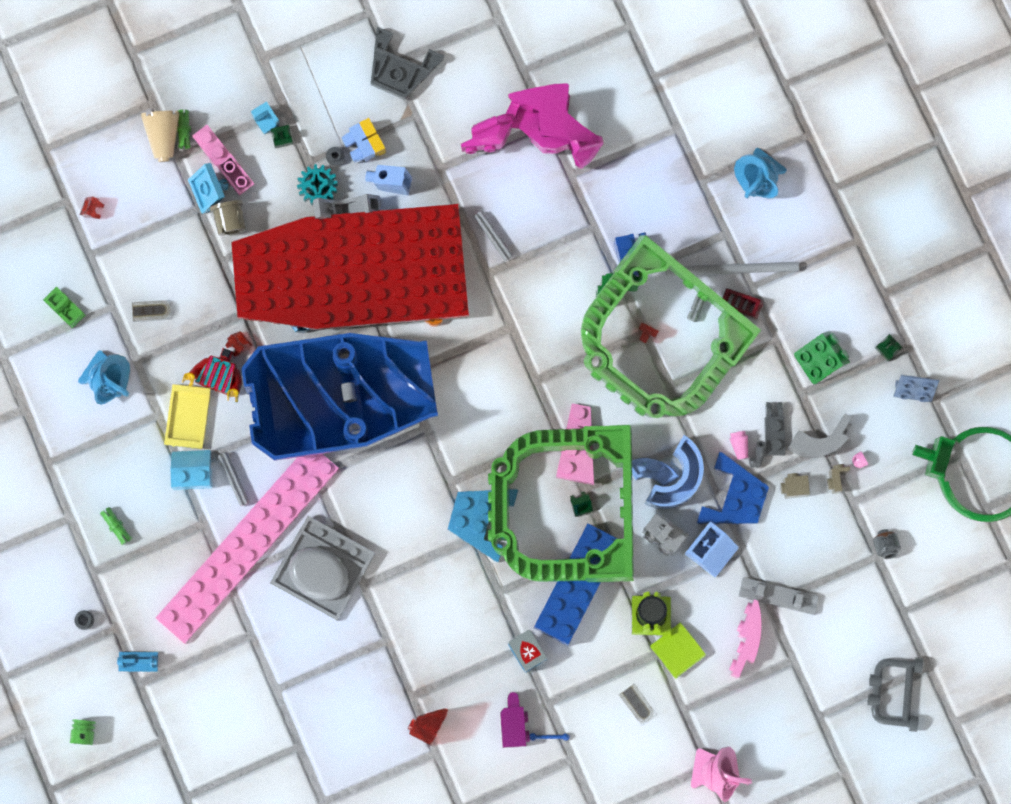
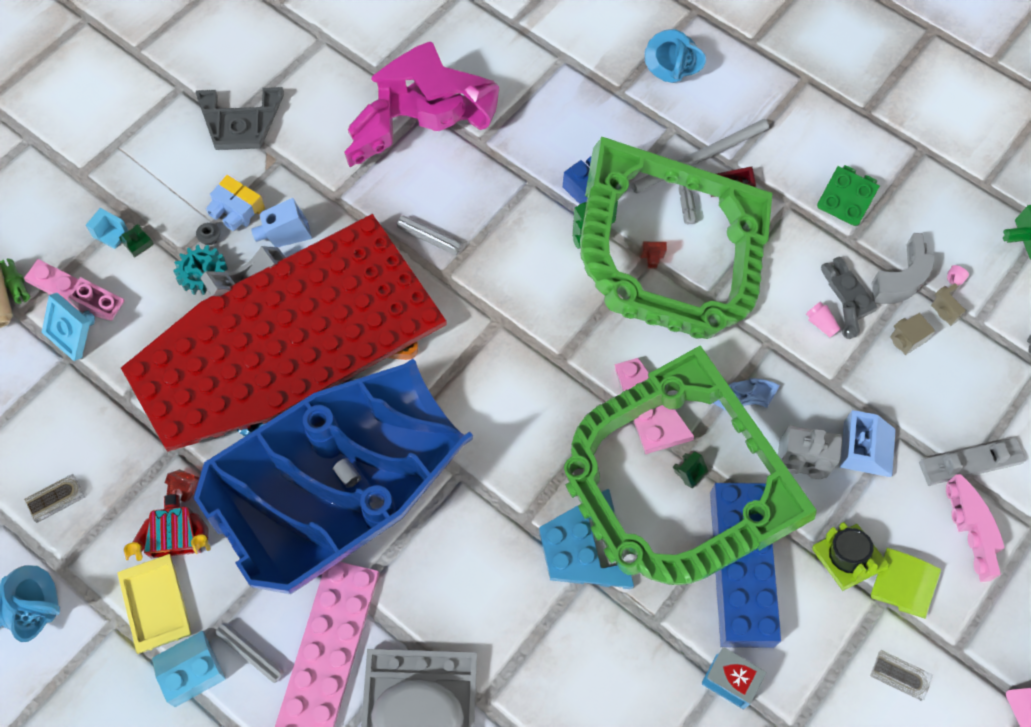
camera: 25 degrees left, 15 degrees down
(228, 217) = (106, 345): dark tan piece -> none
(685, 488) = (797, 380): light blue brick -> none
(743, 499) = (862, 373): blue wing -> none
(888, 347) = (906, 157): dark green tile -> none
(915, 388) = (964, 176): sand blue hinge -> none

